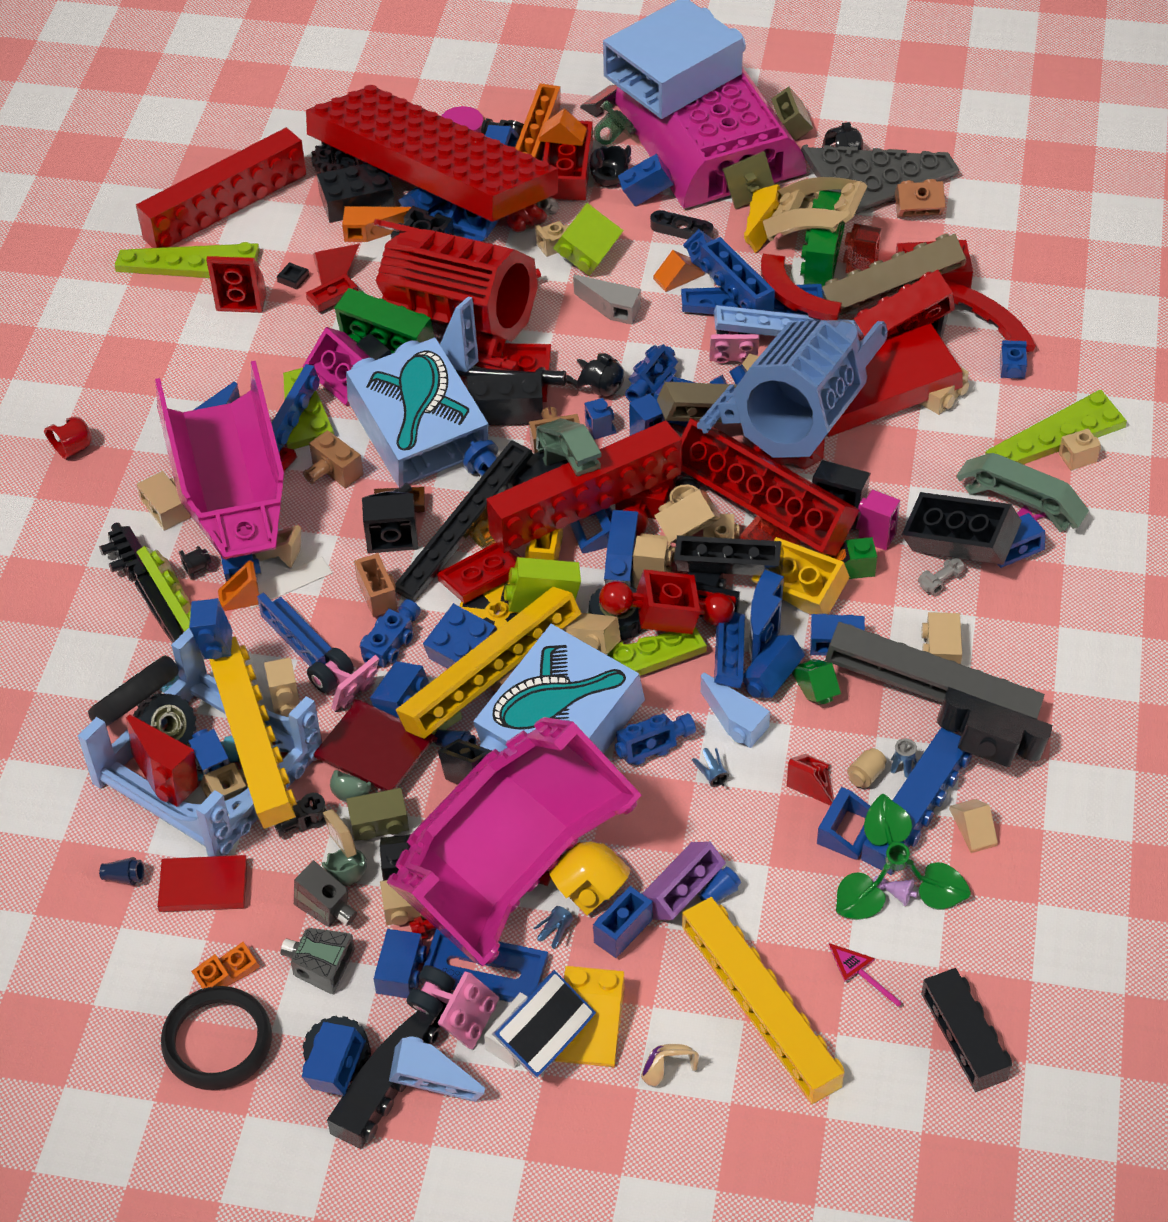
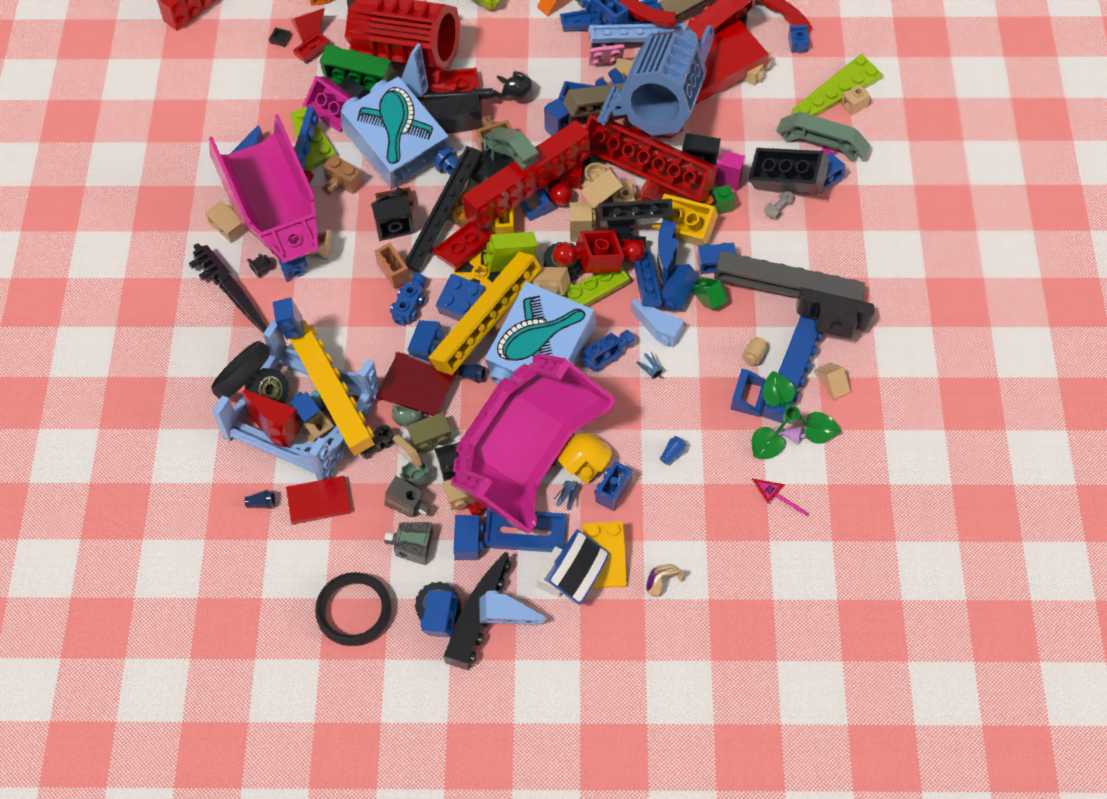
camera: 10 degrees left, 10 degrees up
(73, 435) = (150, 182): red helmet -> none
(167, 583) = (245, 285): lime wing -> none
(179, 261) = (210, 34): lime wing -> none
(226, 969) = (349, 559): orange slope -> none
(236, 284) = (243, 50): red slope -> none
(240, 589) = (296, 281): orange slope -> none
(282, 685) = (344, 351): tan brick -> none
(293, 629) = (345, 309): blue fence -> none
(294, 578) = (326, 270): white sticker -> none
(339, 671) = (378, 333): plate -> none
(460, 759) = (480, 386): black brick -> none
(466, 1008) = (522, 563): bright pink plate -> none
(599, 418) = (522, 119): blue brick -> none
(611, 299) = (510, 27): light grey slope -> none
(621, 547) = (558, 215): blue slope -> none
(651, 371) = (551, 81): blue brick -> none
(683, 879) = (648, 449): medium lavender brick -> none
(763, 1000) = (717, 525): yellow brick -> none
(810, 777) = (718, 363): red slope -> none
(904, 751) = (779, 337): piece -> none
(943, 635) = (789, 249): tan piece -> none
(966, 1029) = (854, 525): black brick -> none

